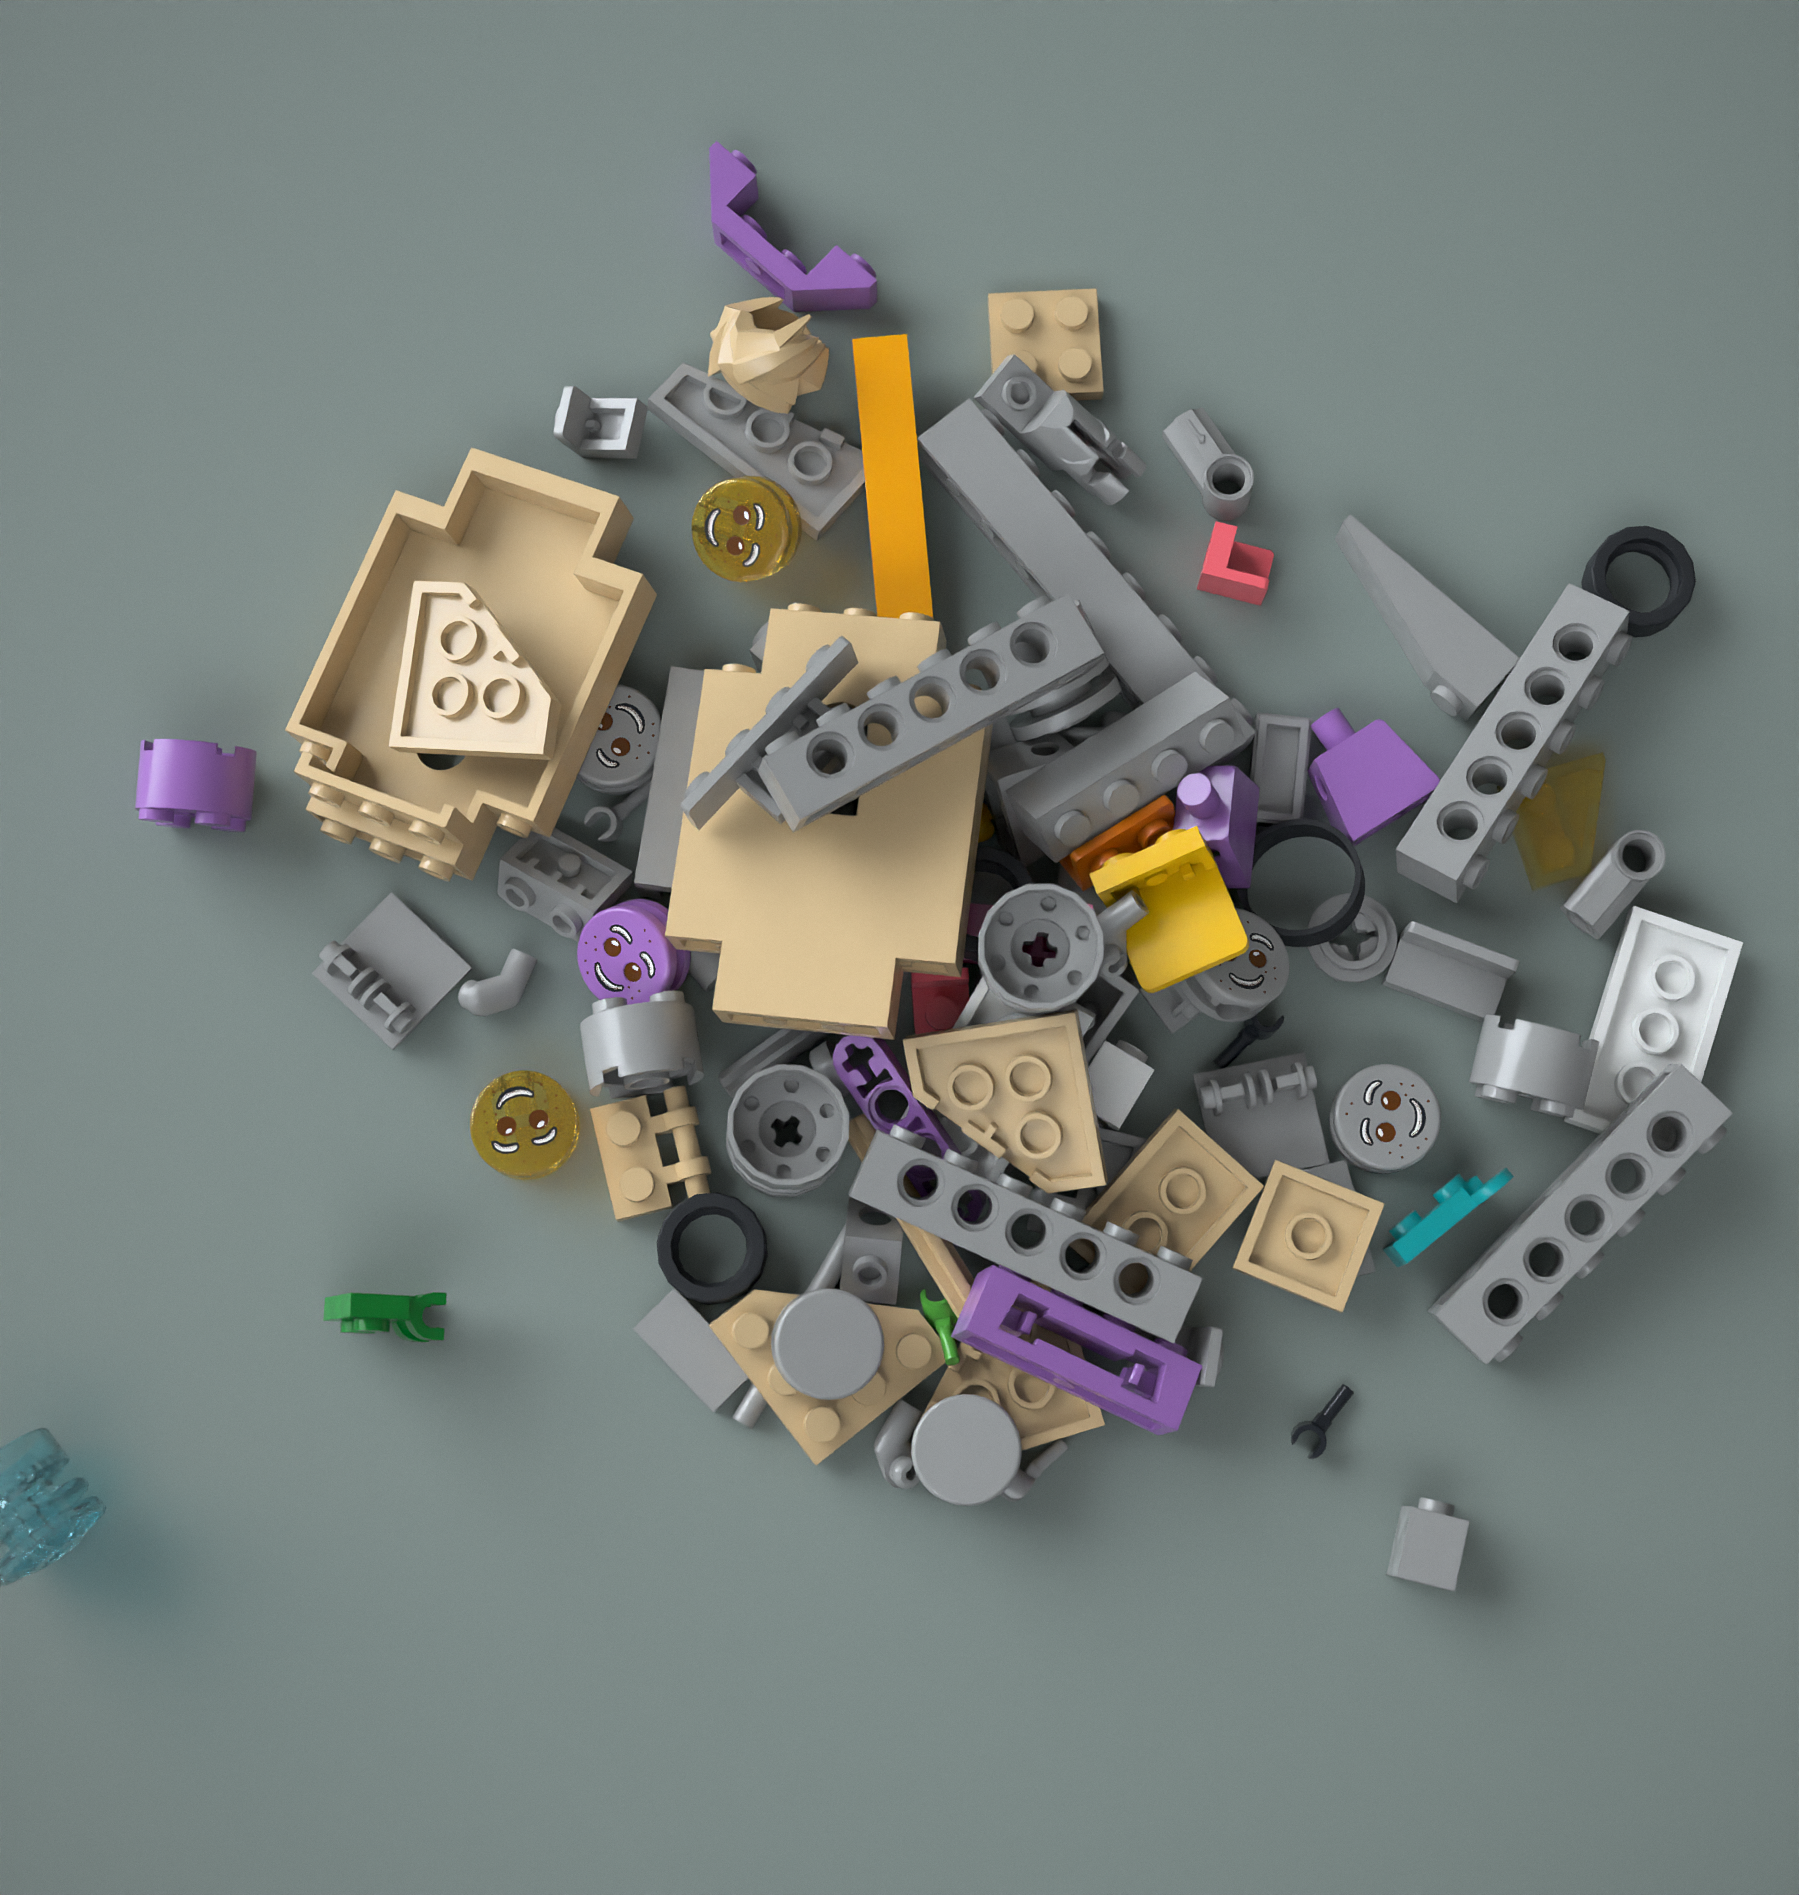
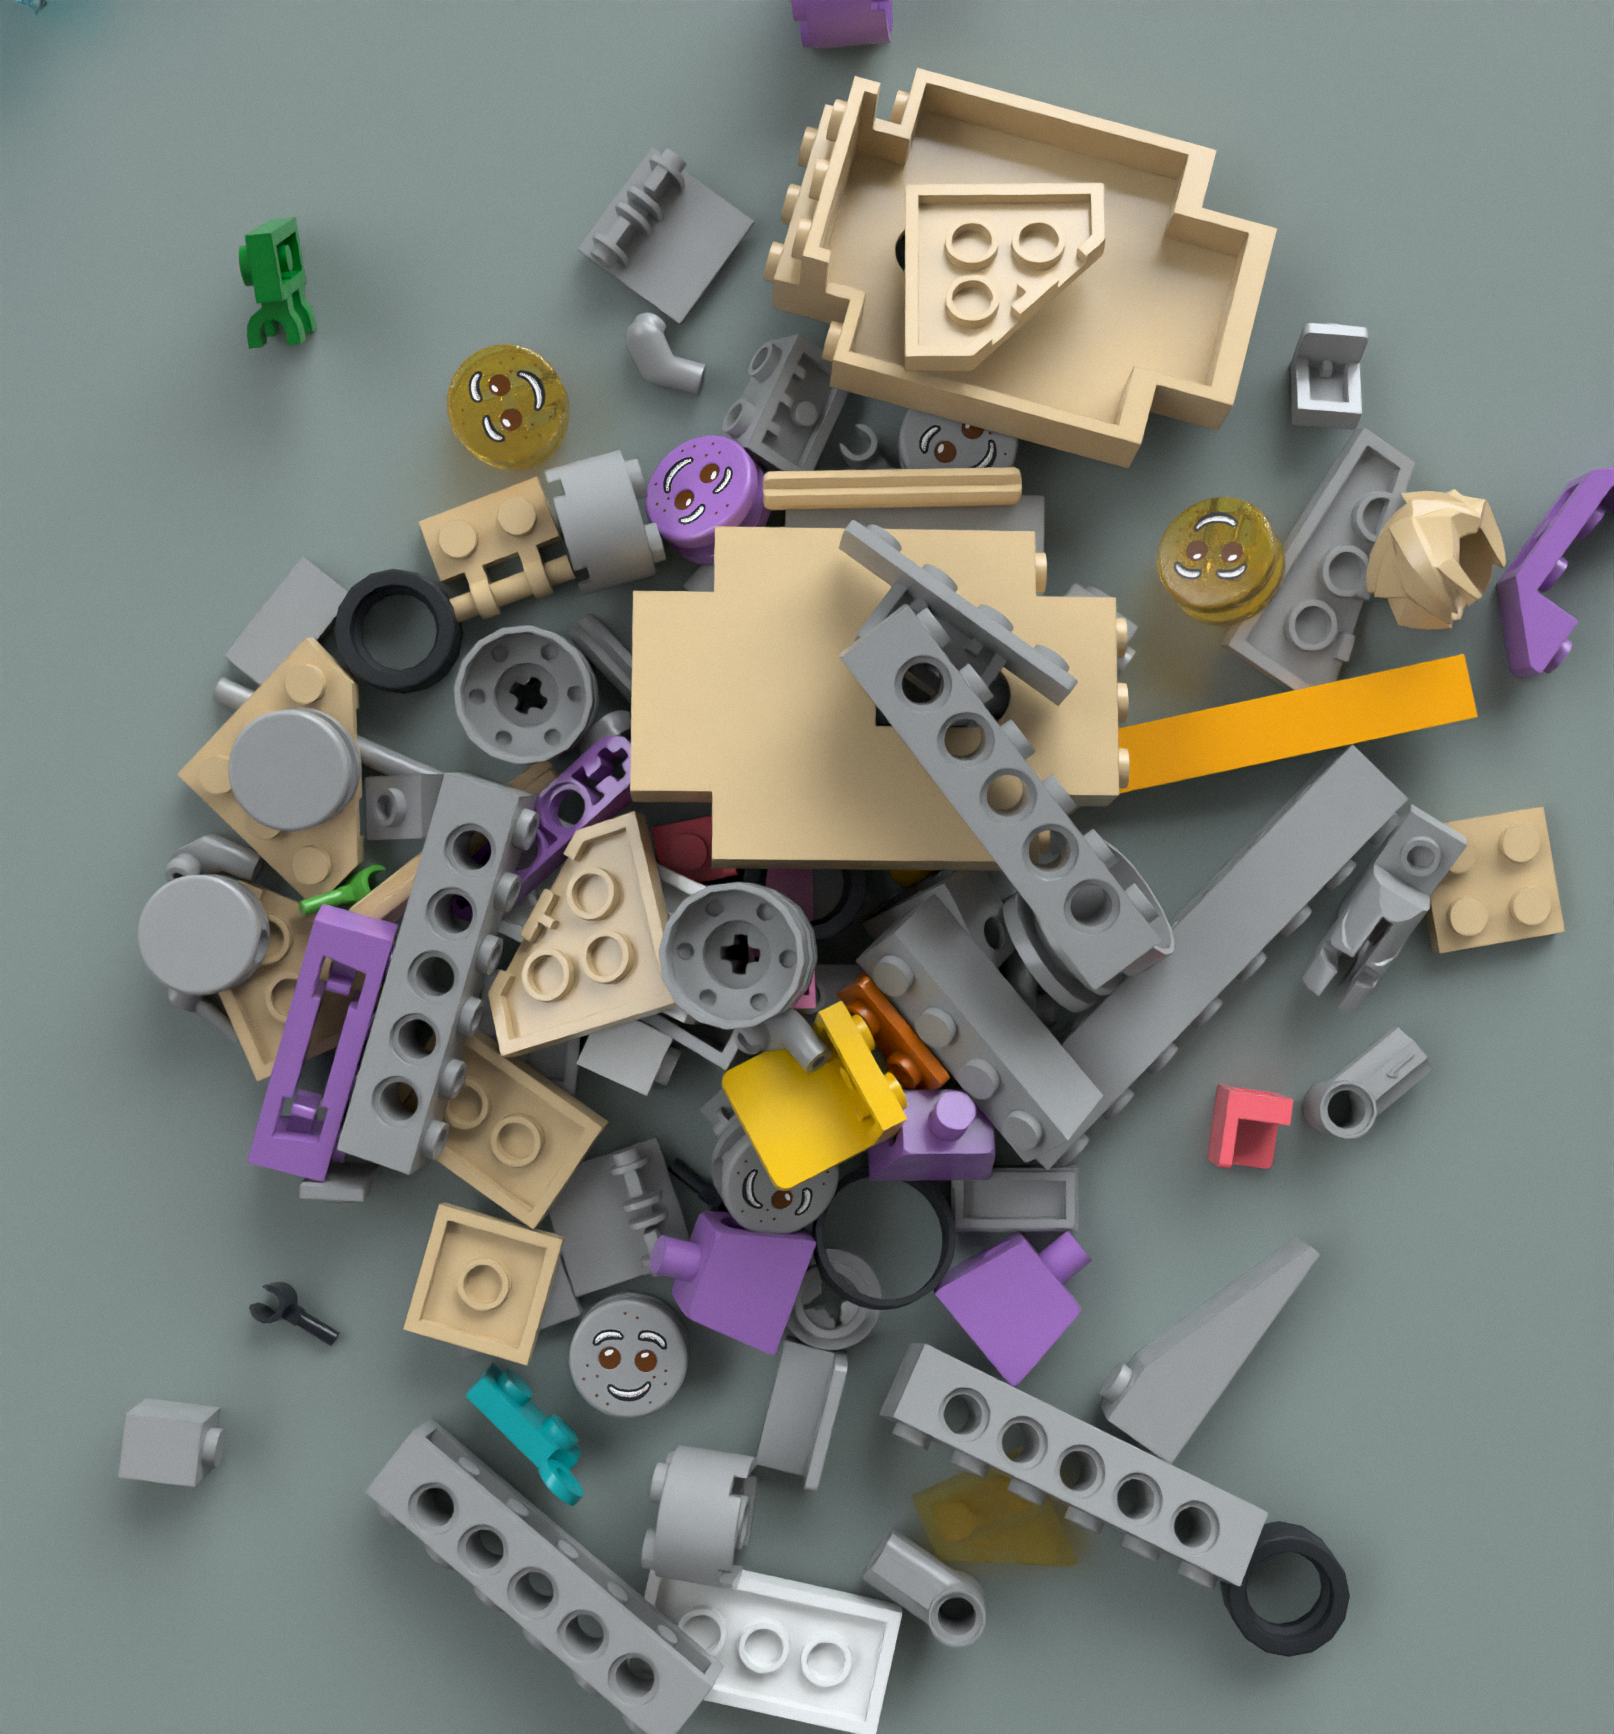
camera: 85 degrees right, 10 degrees up
(648, 791) = (891, 488): none -> tan axle
(1322, 1010) = (735, 1277): none -> medium lavender torso

